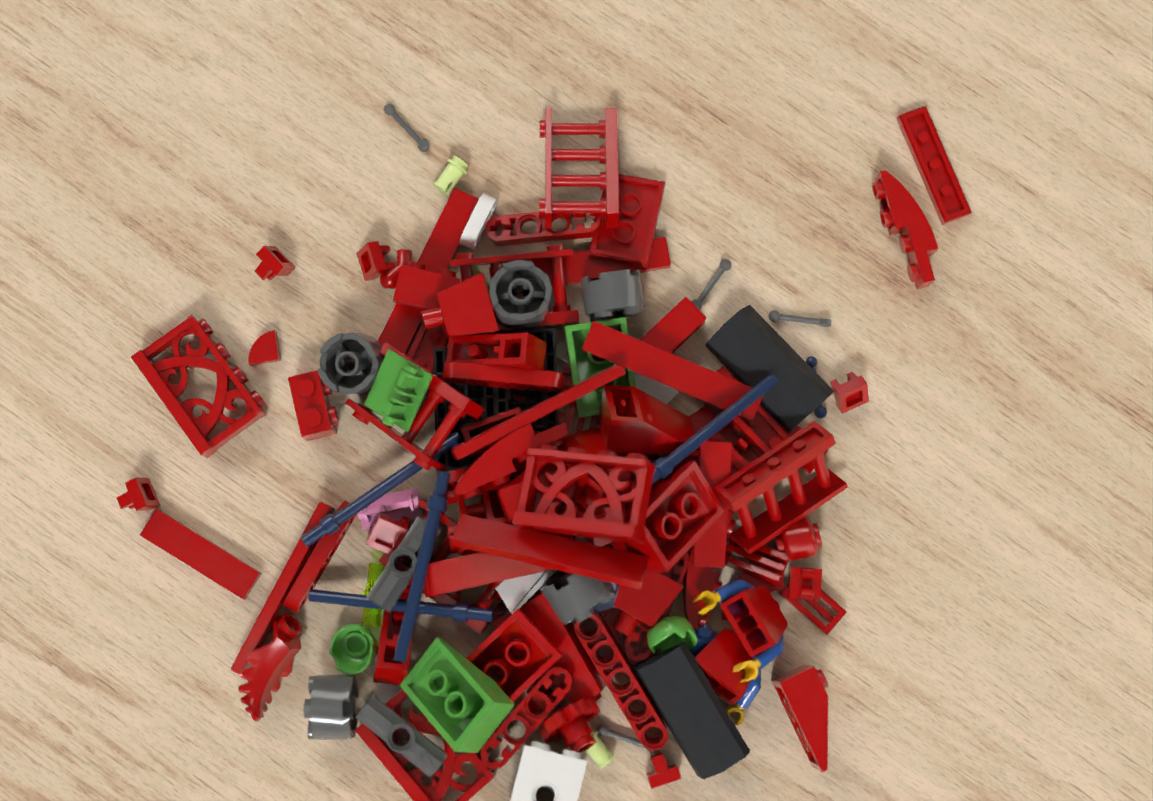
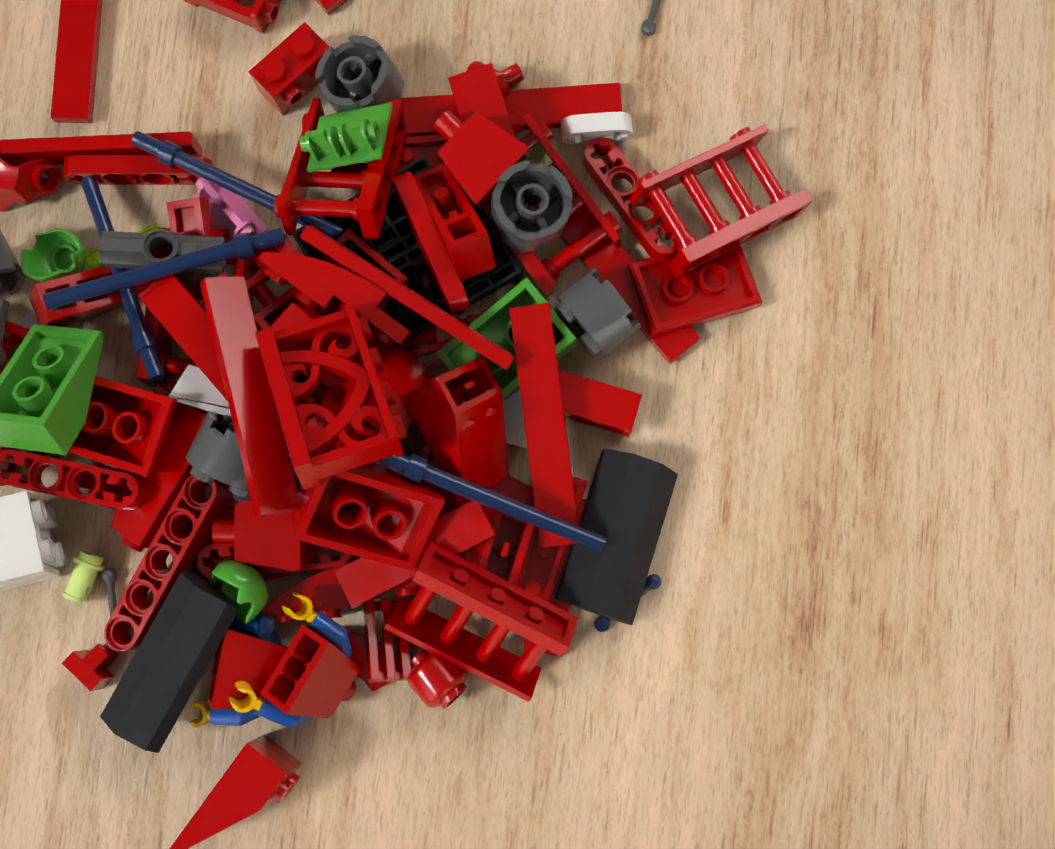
camera: 65 degrees right, 0 degrees up
(372, 260) = (486, 43): red tile -> none
(451, 175) = (631, 72): yellowish green pin -> none
(572, 725) = (85, 536): red plant -> none
(725, 265) = (644, 416): dark grey hinge -> none
(774, 316) = (682, 511): dark grey hinge -> none
(804, 583) = (390, 712): red tile -> none
(825, 629) = (369, 769): red tile -> none
(851, 393) = (641, 646): red tile -> none
(903, 215) = (887, 596): red slope -> none
(933, 165) = (969, 598): red tile -> none

